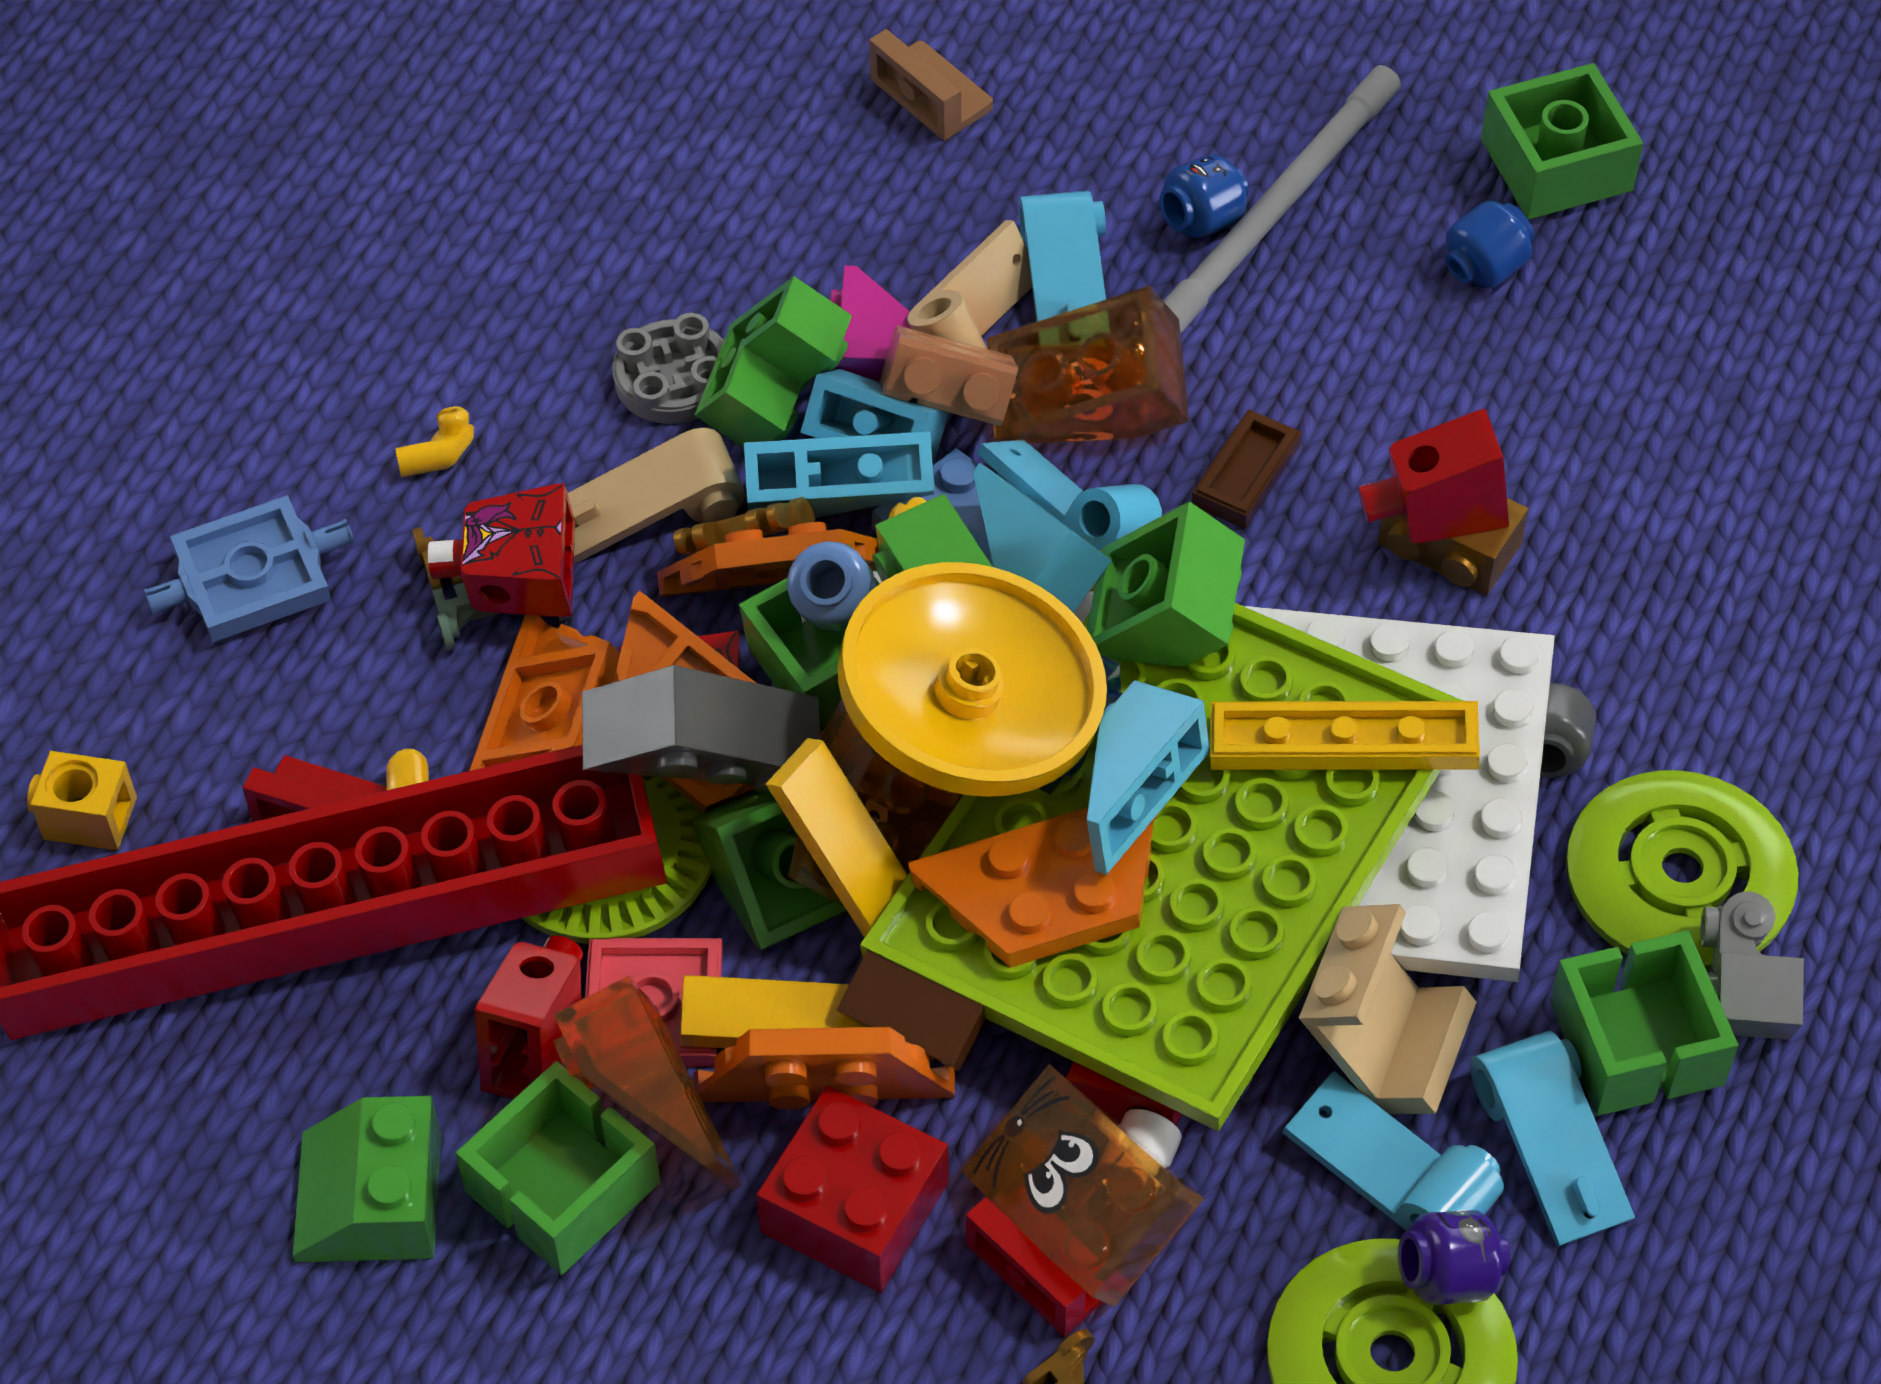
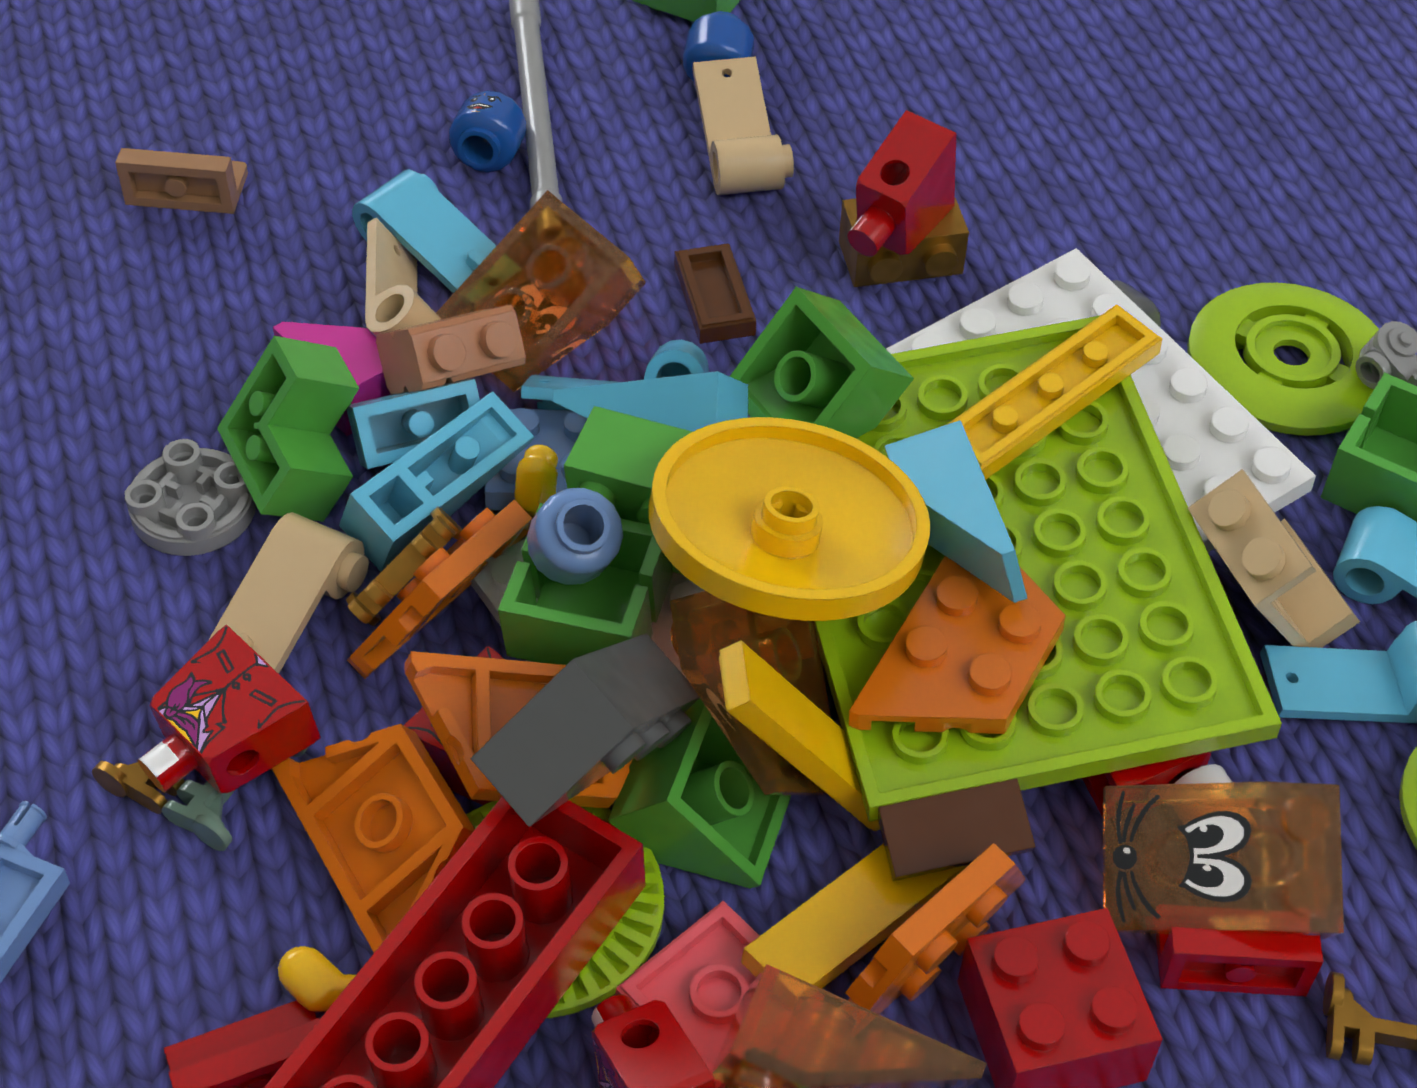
camera: 45 degrees left, 5 degrees down
(443, 449) = (47, 686): yellow arm -> none
(1425, 330) = (737, 128): none -> tan door

